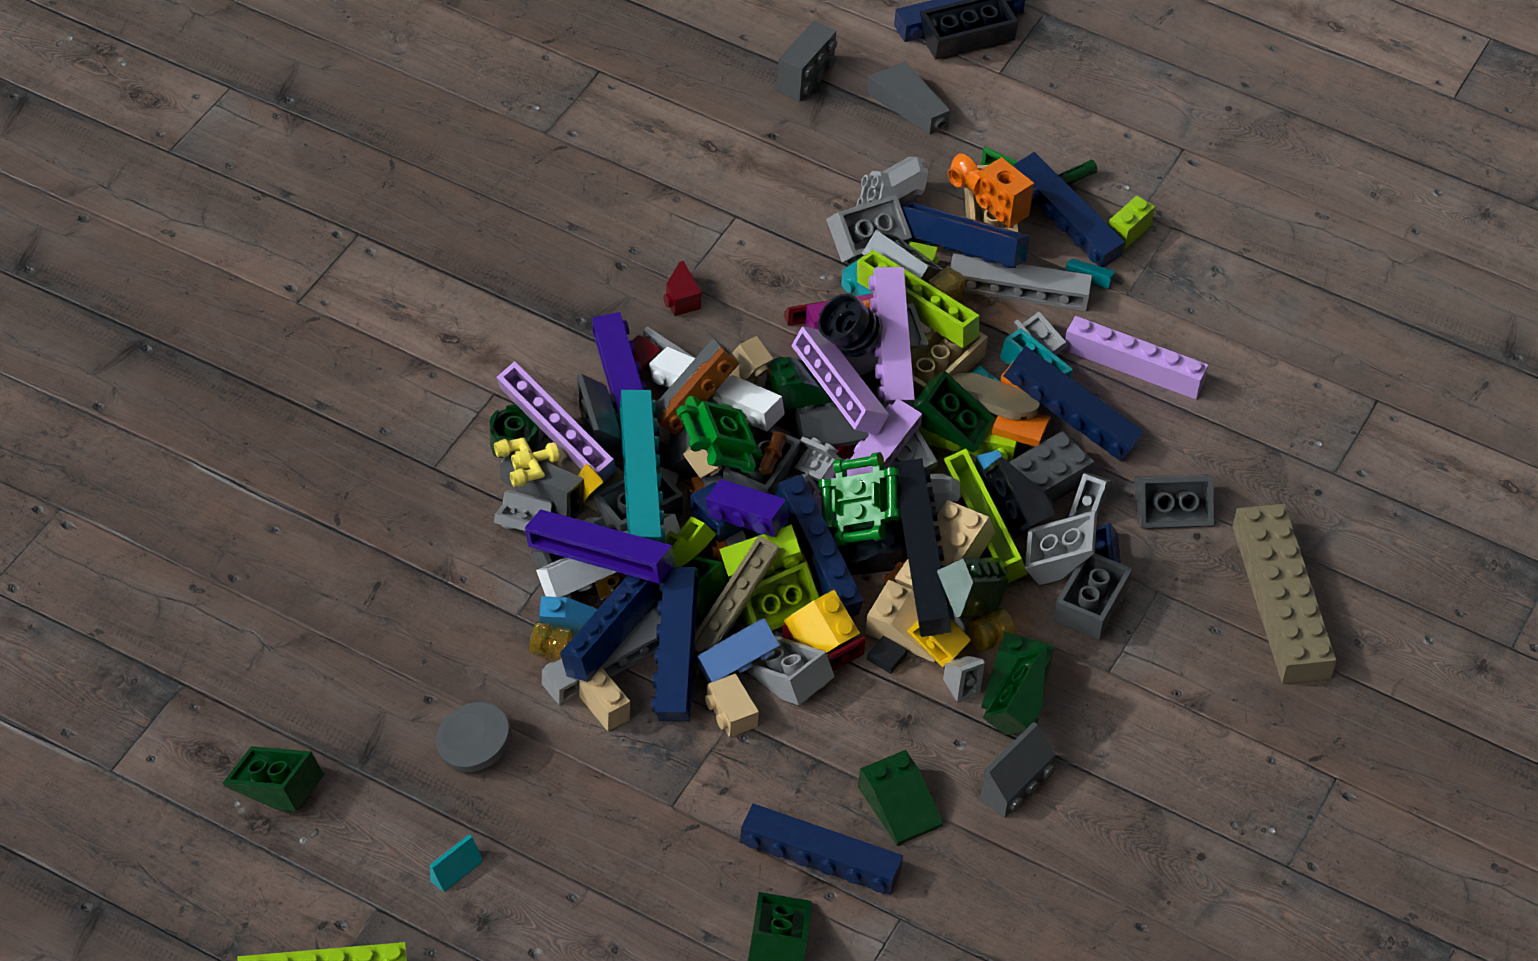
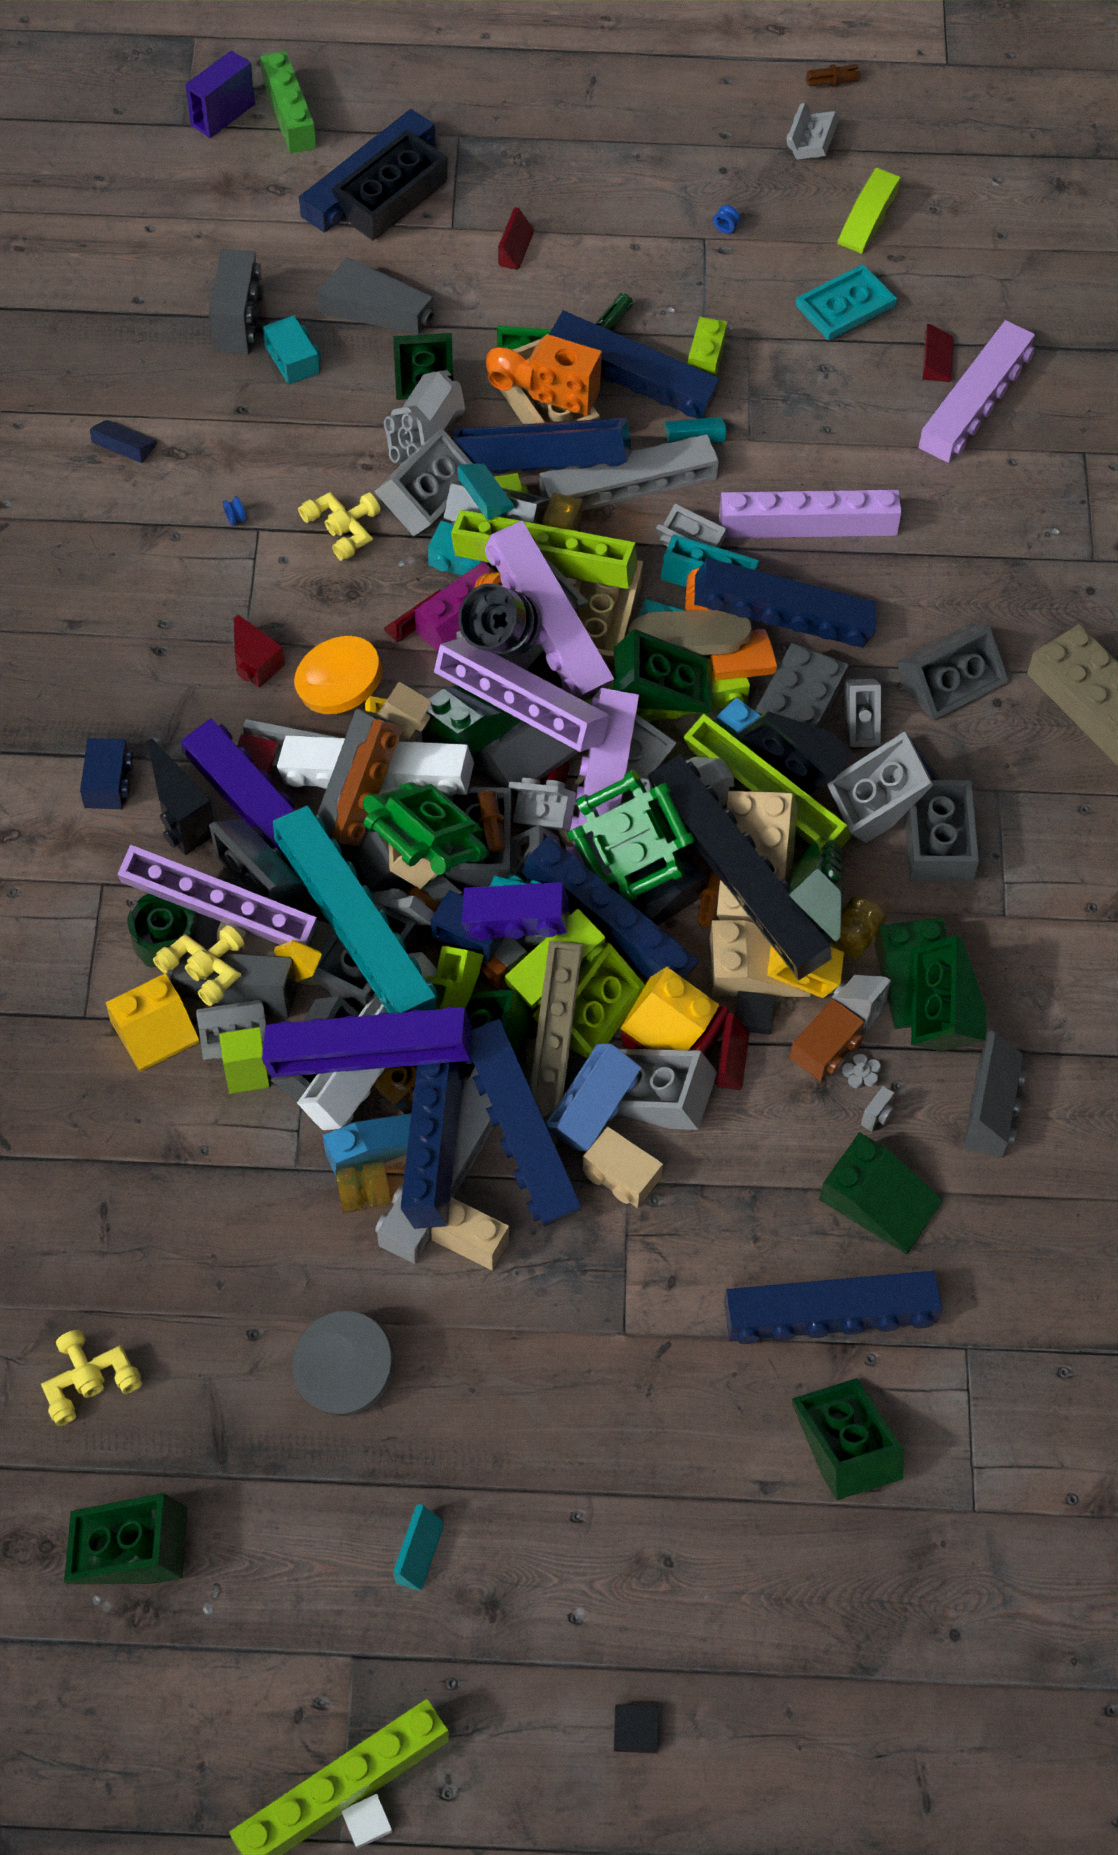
camera: 25 degrees left, 10 degrees up
(306, 673) = (86, 1376): none -> light yellow piece
(473, 486) = (152, 1022): none -> yellow slope
(512, 531) = (243, 1060): none -> lime brick
(535, 325) = (105, 773): none -> dark blue piece
(569, 359) = (183, 805): none -> black slope
(676, 123) = (122, 440): none -> dark blue slope
(682, 481) = (405, 905): none -> light grey slope
(724, 196) = (234, 511): none -> blue bush
(731, 324) = (338, 675): none -> light orange piece
(796, 232) = (342, 521): none -> light yellow piece
(830, 108) = (292, 349): none -> teal brick
(854, 671) = (733, 1054): none -> dark red slope
(896, 241) = (484, 490): none -> teal slope
(913, 141) = (419, 356): none -> dark green slope
(925, 690) = (827, 1040): none -> dark orange brick
(932, 747) = (878, 1109): none -> light grey plate
(939, 722) = (861, 1071): none -> light grey plant
(1038, 97) = (514, 240): none -> dark red slope
(1206, 140) = (726, 219): none -> blue bush
(1259, 229) = (845, 302): none -> teal plate
(1306, 291) = (937, 354): none -> dark red slope
(1309, 105) = (811, 133): none -> light grey bracket
(1318, 326) = (977, 392): none -> lavender brick
(1319, 174) = (869, 210): none -> lime slope
(1354, 73) = (832, 75): none -> reddish brown axle

